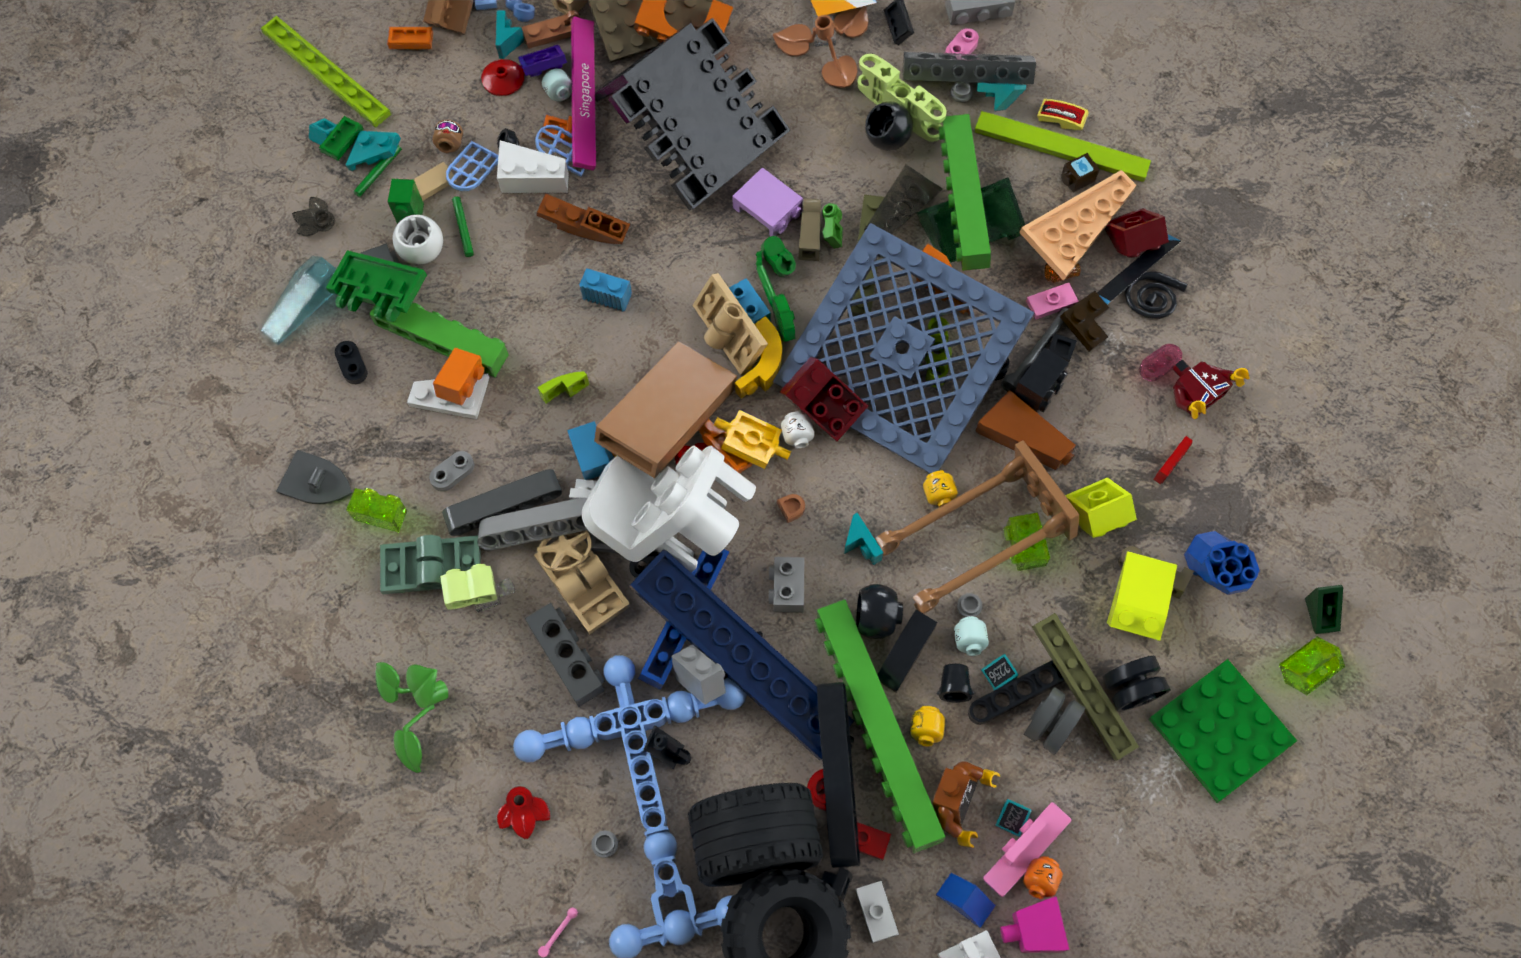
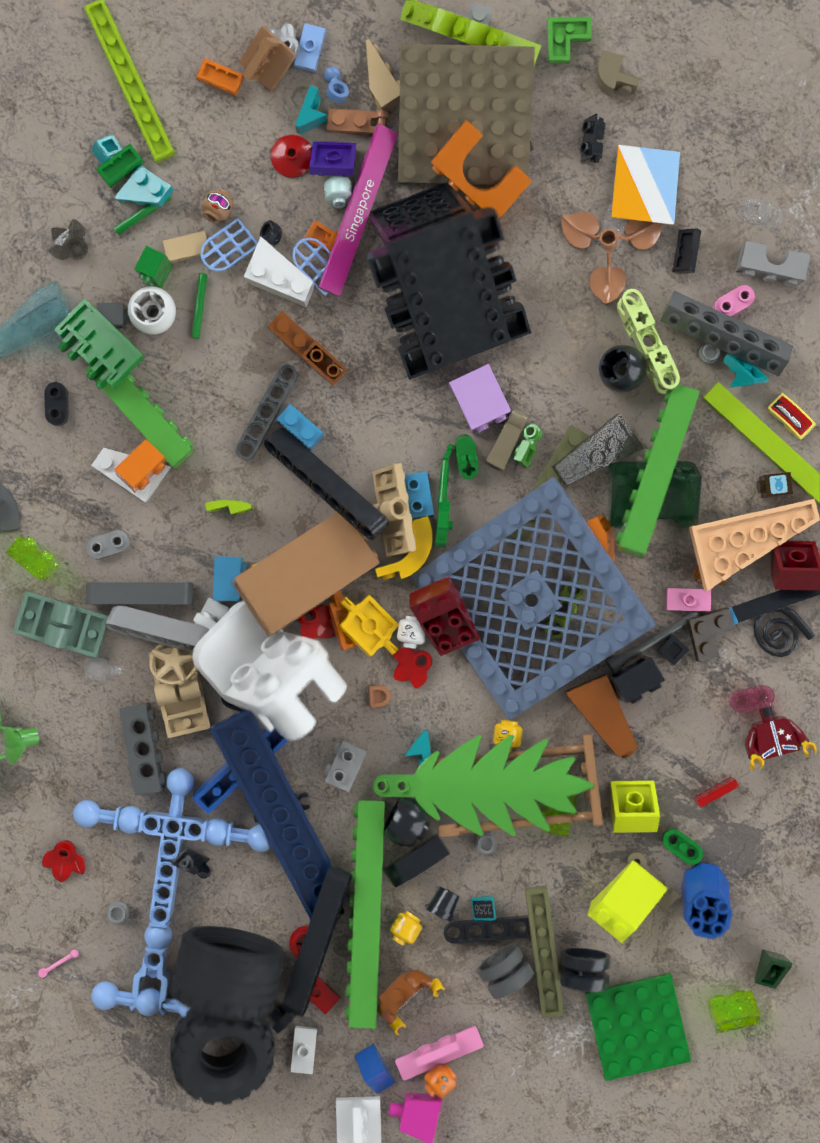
camera: 25 degrees right, 20 degrees up
(468, 586) = (82, 663): yellowish green brick -> none
(566, 301) = (266, 423): none -> dark grey beam
(653, 324) = (326, 483): none -> black beam
(699, 674) = (238, 820): light grey brick -> none
(810, 467) = (409, 668): none -> red plate
(944, 533) = (457, 786): none -> bright green plant
(971, 636) = (474, 871): light aqua head -> none
(1013, 817) = (440, 1024): slope -> none
(1167, 526) = (681, 846): none -> green plate

